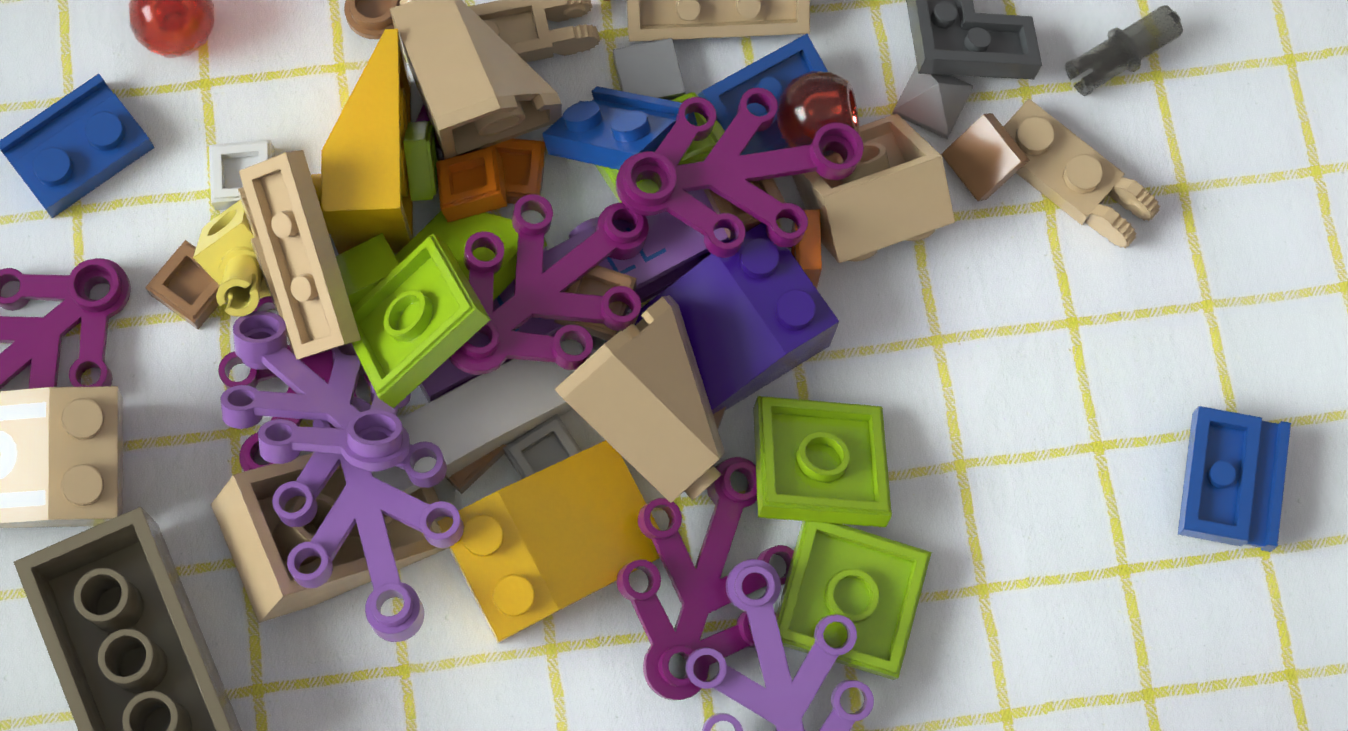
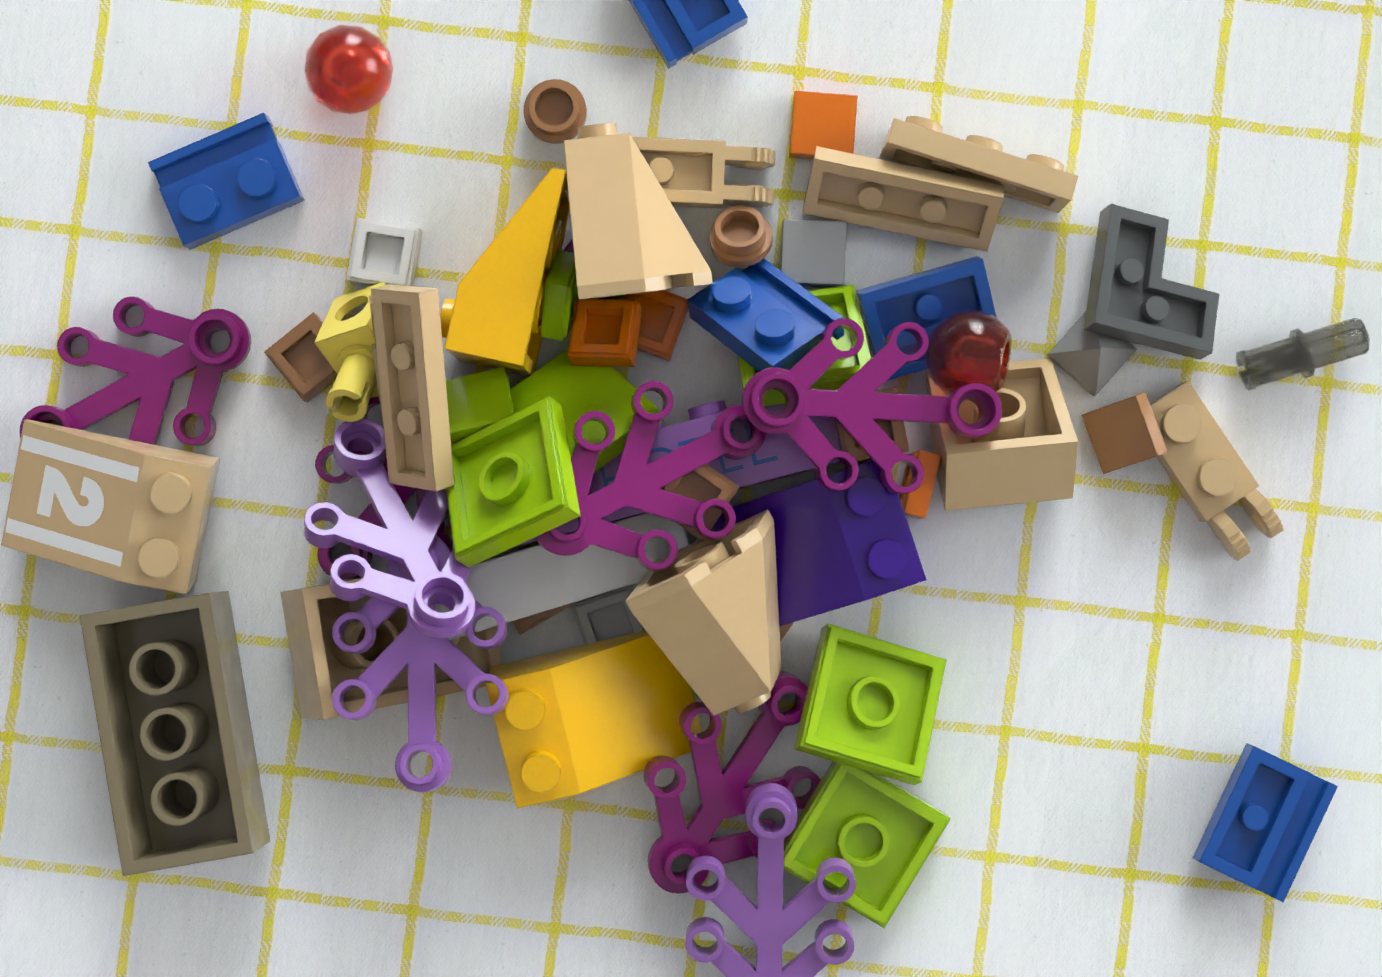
camera: 20 degrees right, 15 degrees up
(577, 72) = (740, 236): none -> medium nougat plate

